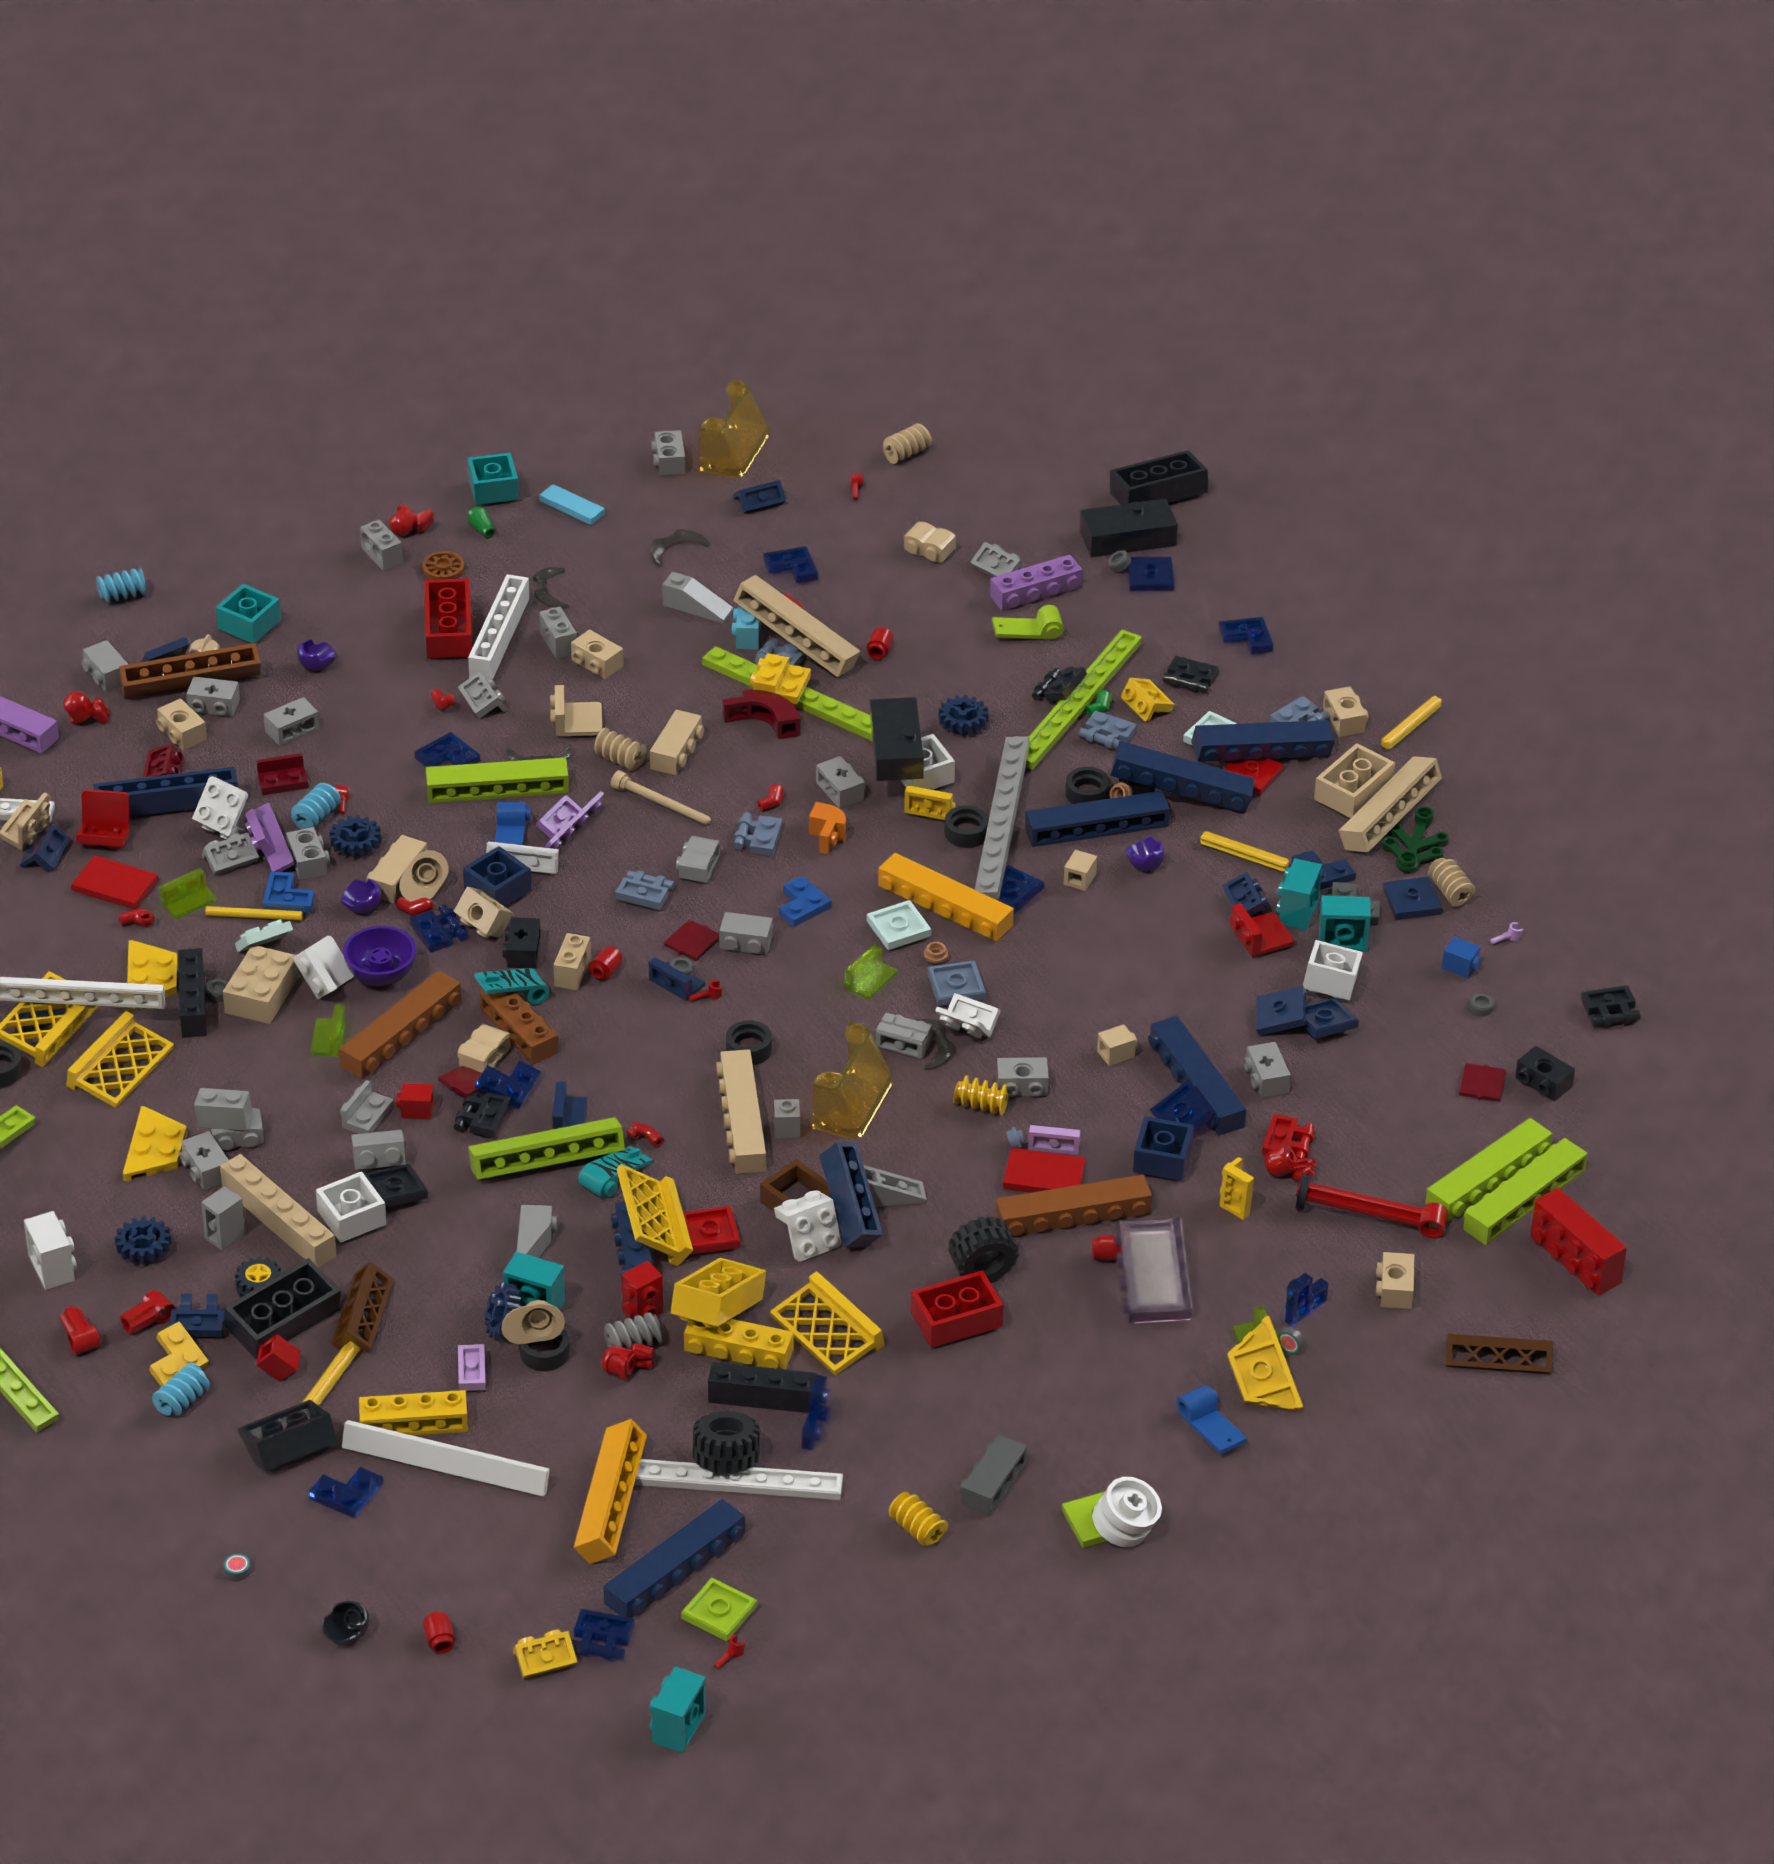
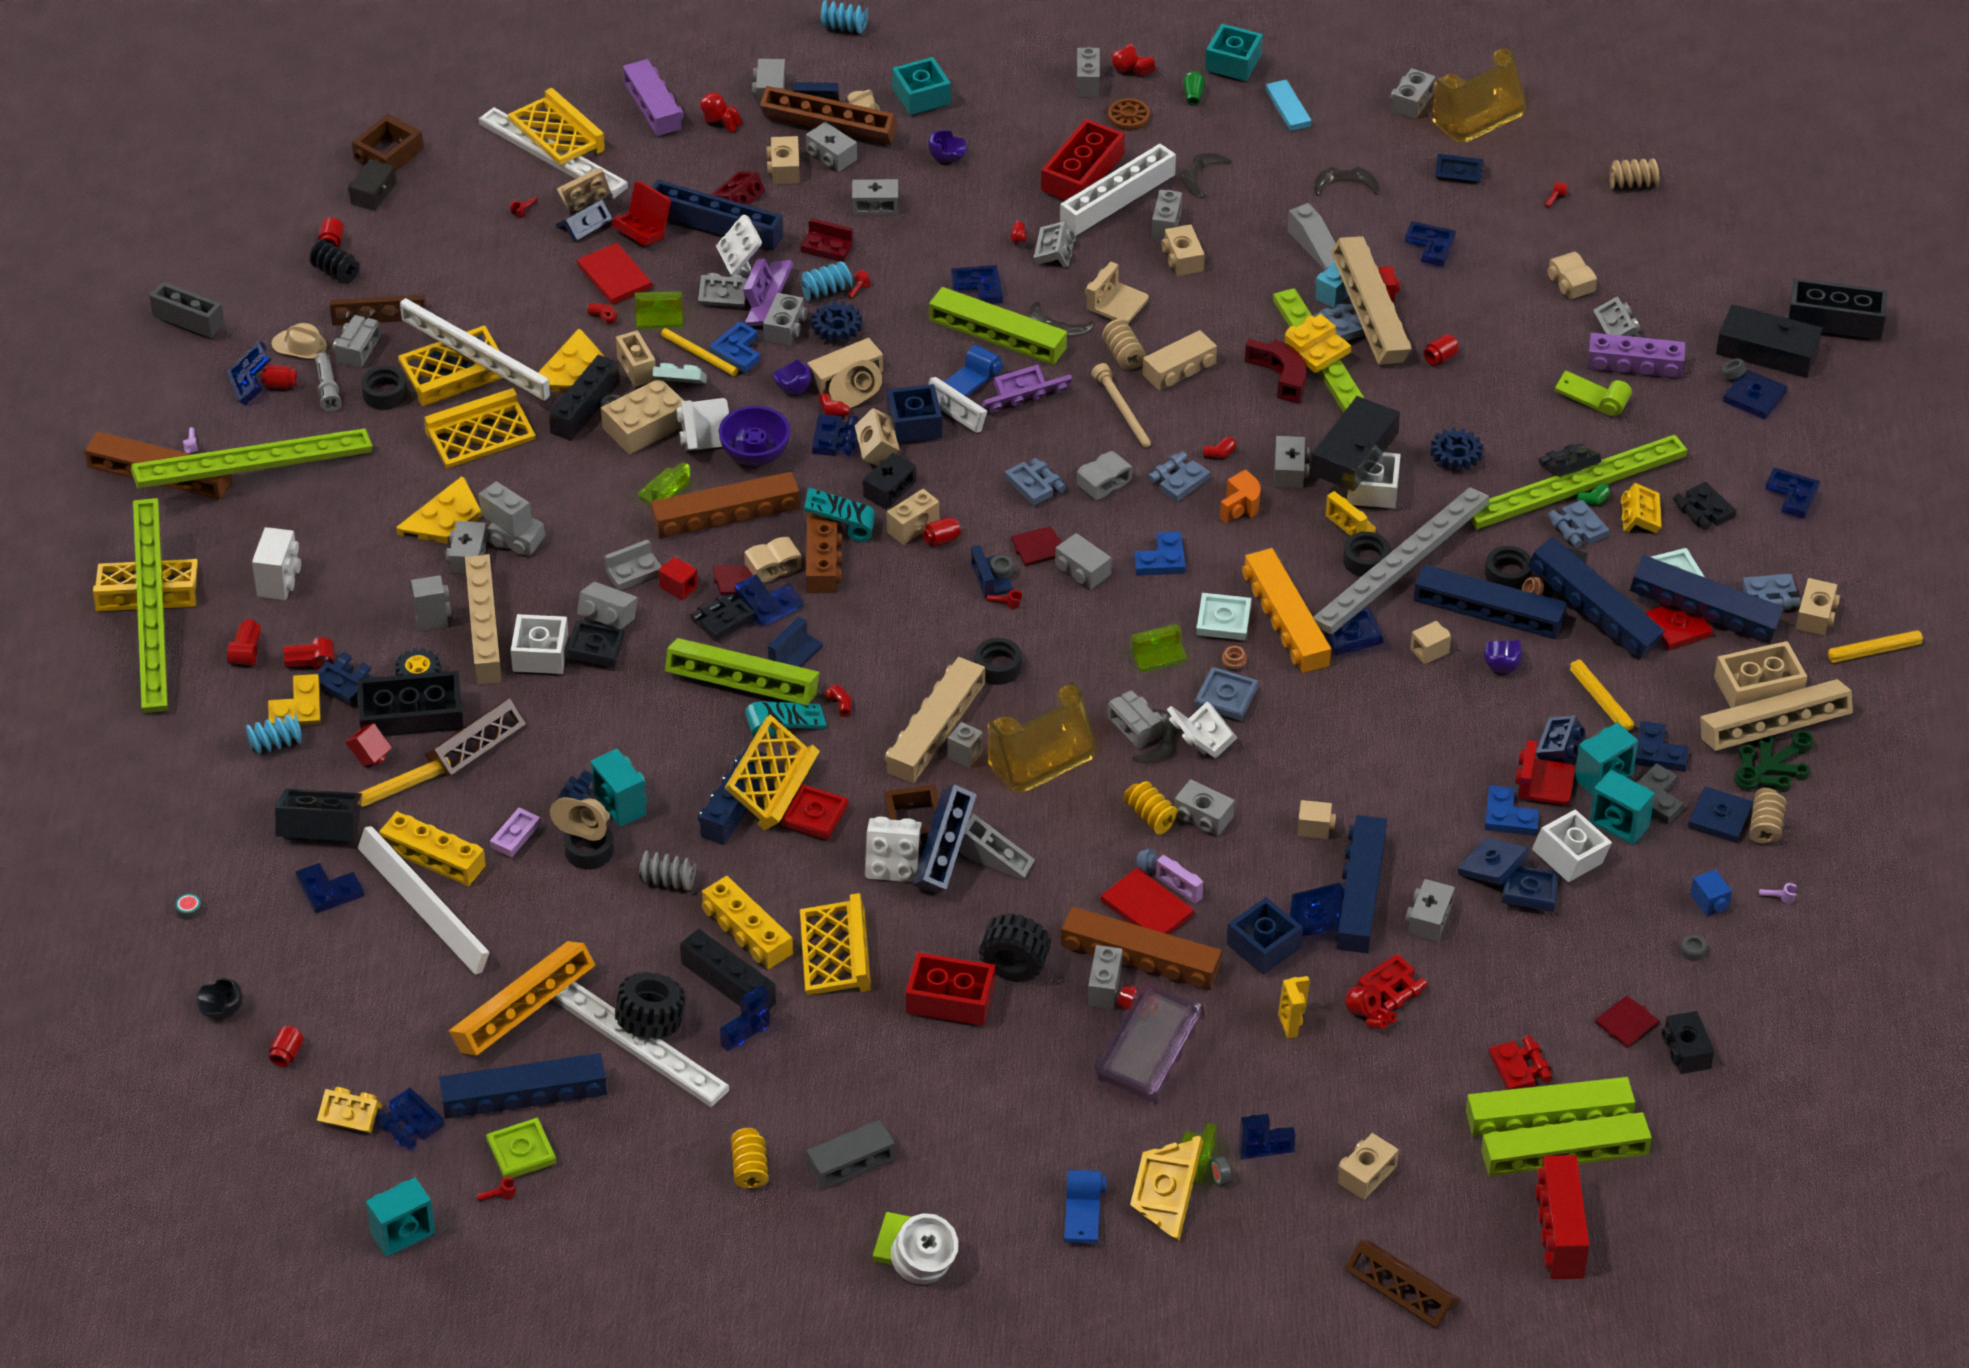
camera: 35 degrees right, 5 degrees up
(143, 1240) = (360, 591): dark blue gear -> none
(217, 941) = (635, 358): none -> tan brick
(535, 1229) = (664, 743): light grey slope -> none
(622, 1361) = (638, 891): red piece -> none
(642, 1291) = (699, 837): red brick -> none
(718, 1292) = (755, 869): yellow brick -> none
(1067, 1241) = (1105, 977): none -> light grey brick
(1253, 975) = (1504, 817): none -> blue plate
(1429, 1219) = (1449, 1124): red piece -> none
(1432, 1157) = (1512, 1066): none -> red plate
(1610, 1000) = (1816, 1003): black plate -> none

